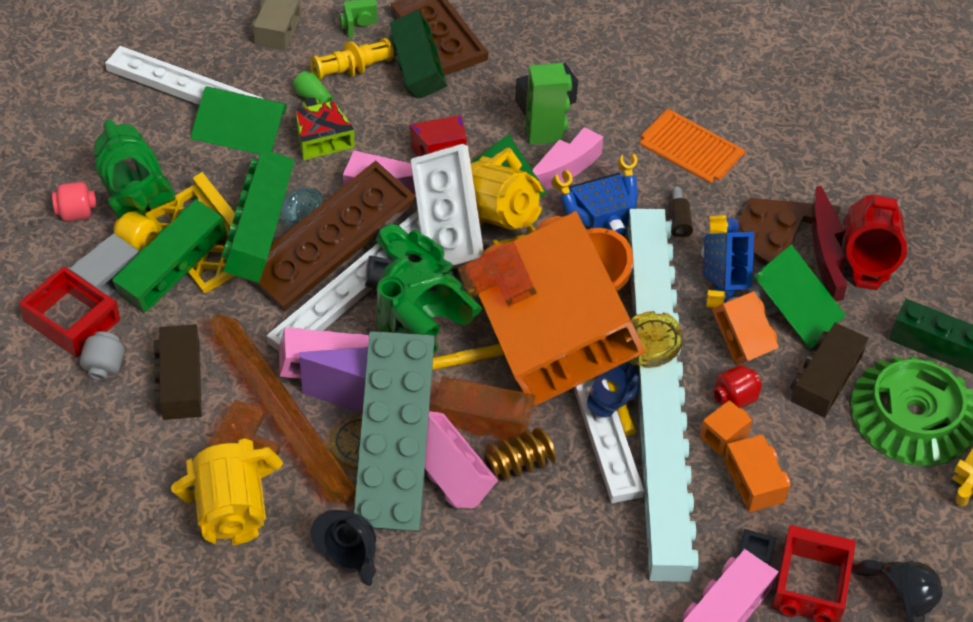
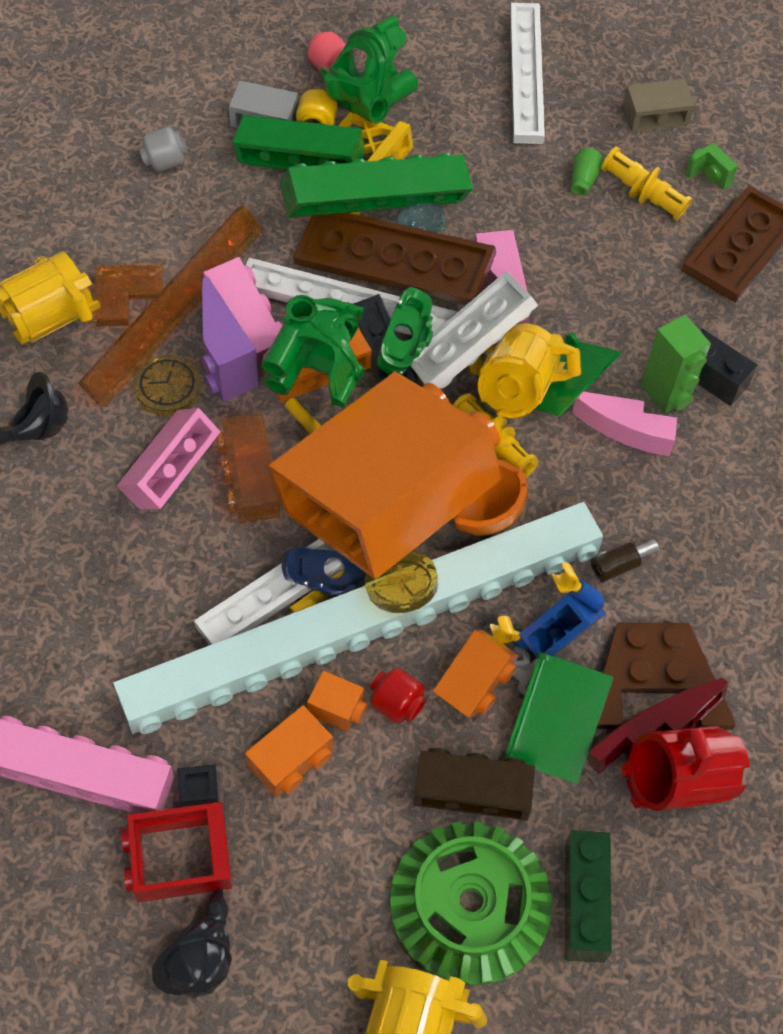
camera: 65 degrees right, 10 degrees up
(99, 319) = (195, 127): red window -> none
(178, 372) = (174, 211): dark brown brick -> none
(237, 120) = (504, 129): green piece -> none
(323, 129) = (534, 197): torso -> none
(394, 430) = (165, 392): sand green plate -> none
(417, 55) = (684, 233): dark green brick -> none
(437, 135) = (579, 302): red torso -> none
(500, 268) = (389, 401): clear orange plate -> none
(519, 453) = (203, 518): pearl gold piece -> none
(603, 200) = (587, 474): blue torso -> none
(691, 146) = (737, 540): orange window -> none

